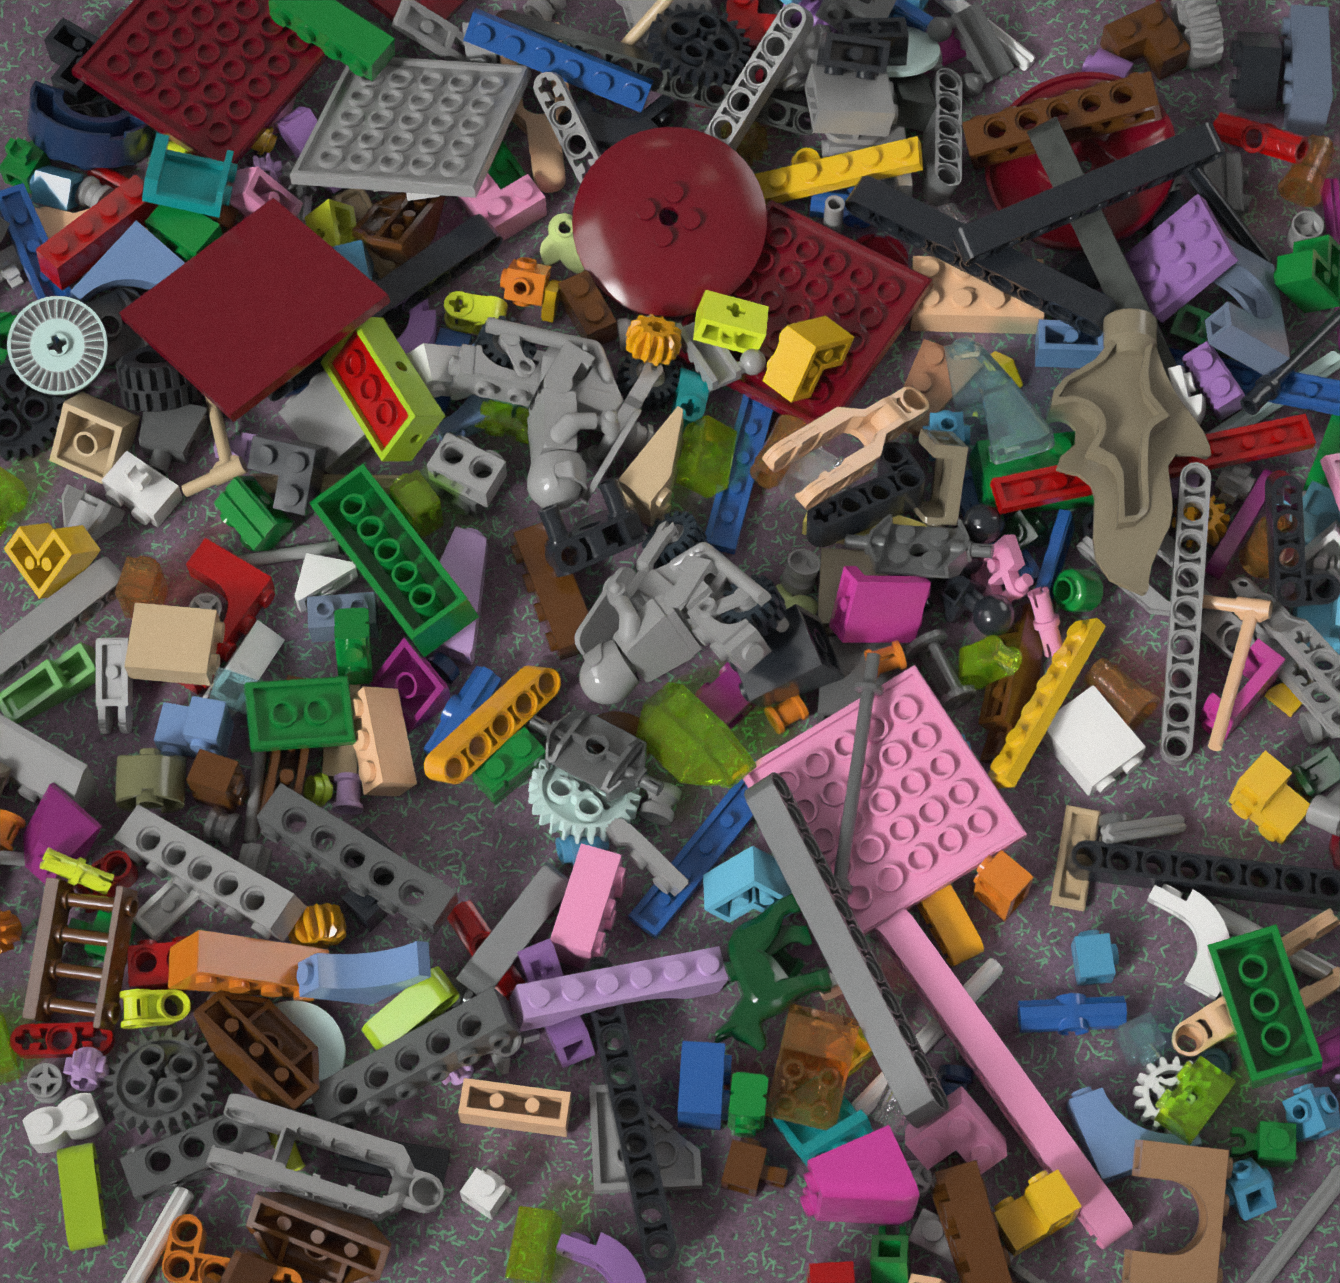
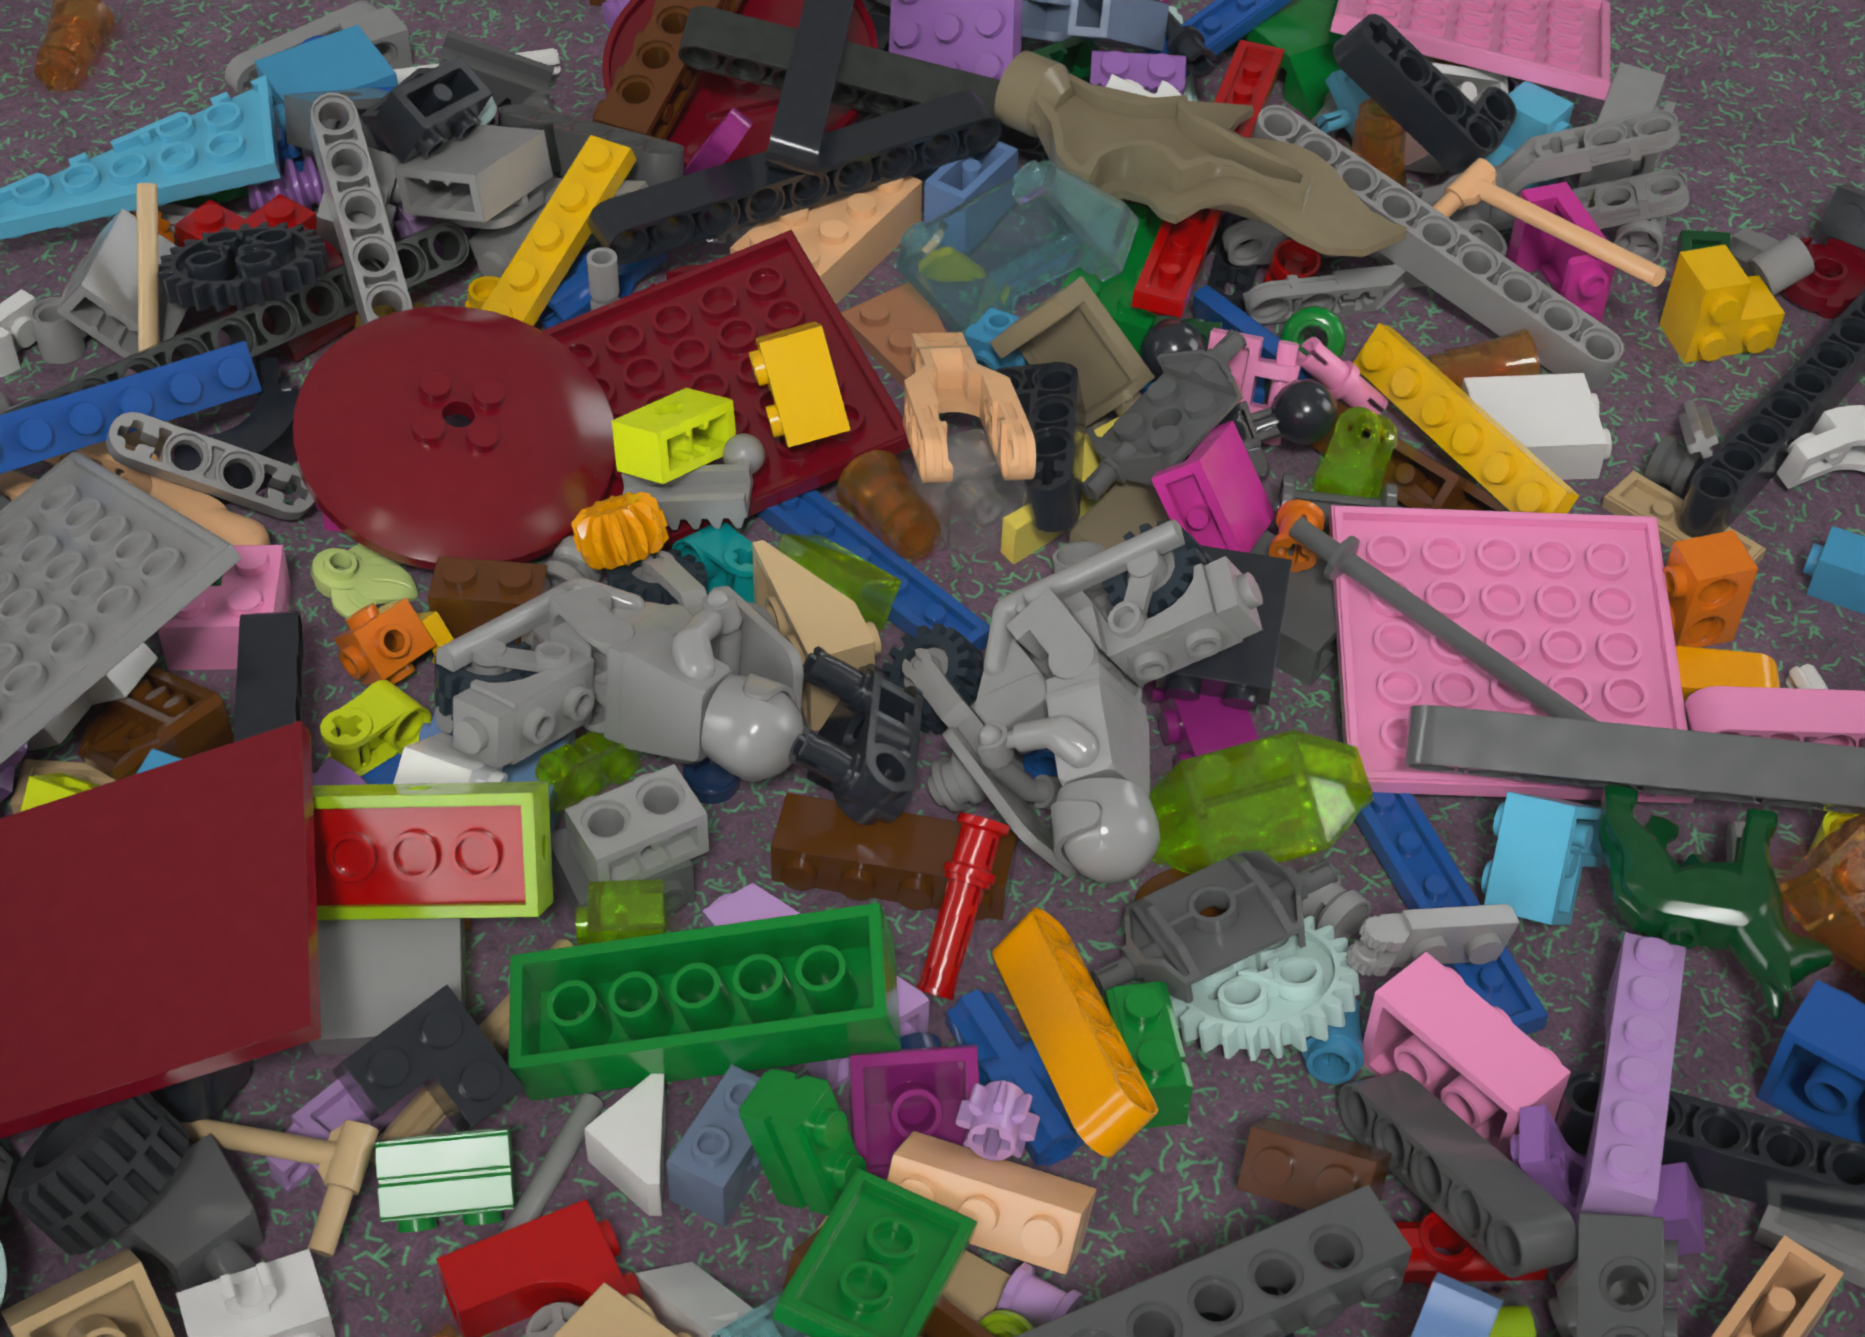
camera: 60 degrees left, 20 degrees down
(418, 720) = (997, 1120): none -> lavender gear
(485, 871) = (1308, 1165): none -> reddish brown brick
(544, 629) = (967, 877): none -> red pin
(786, 713) = (1283, 699): orange bush -> none
(966, 201) = (720, 142): none -> magenta beam

